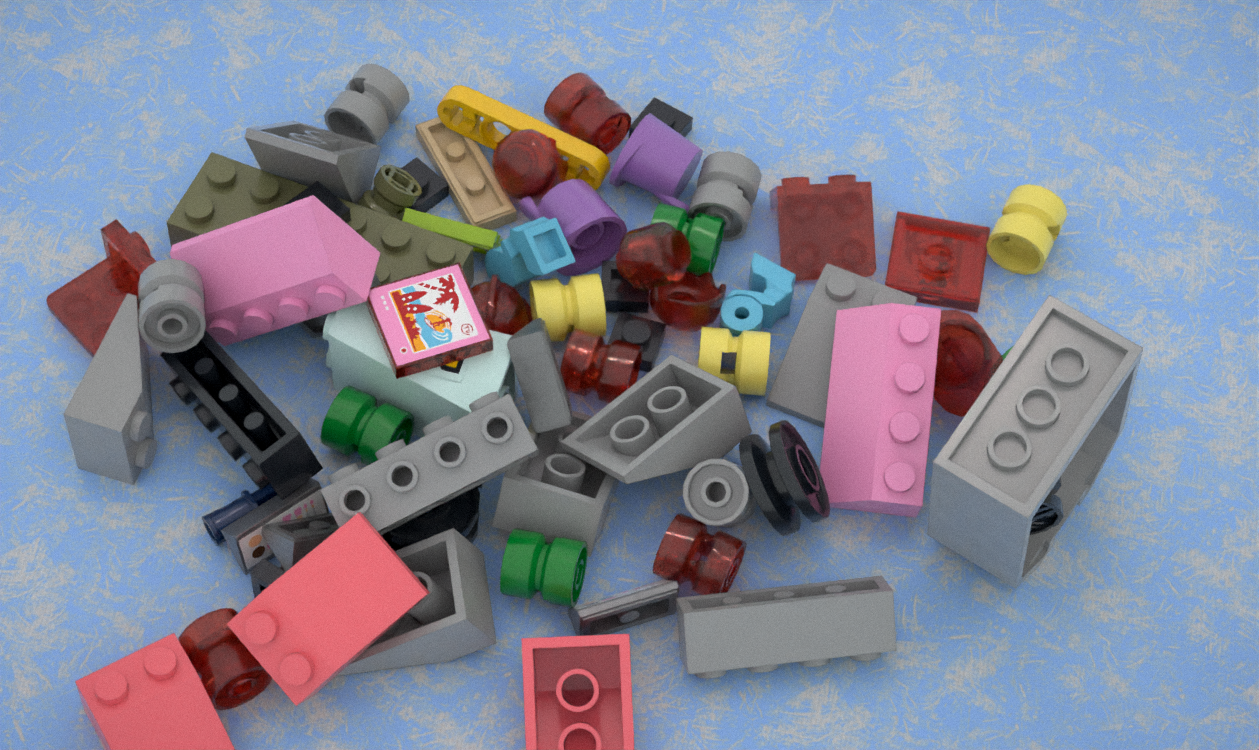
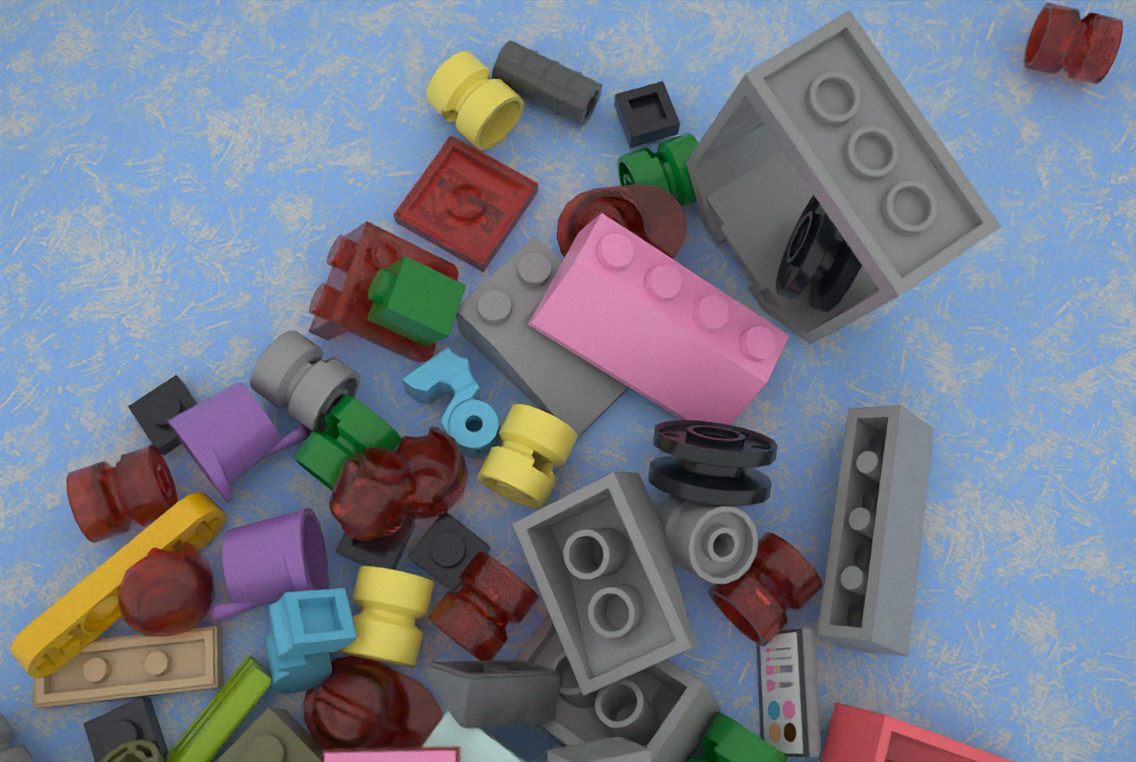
camera: 70 degrees left, 15 degrees up
(819, 232) = (414, 301): none -> green brick
(1079, 271) = (547, 82): none -> dark grey axle

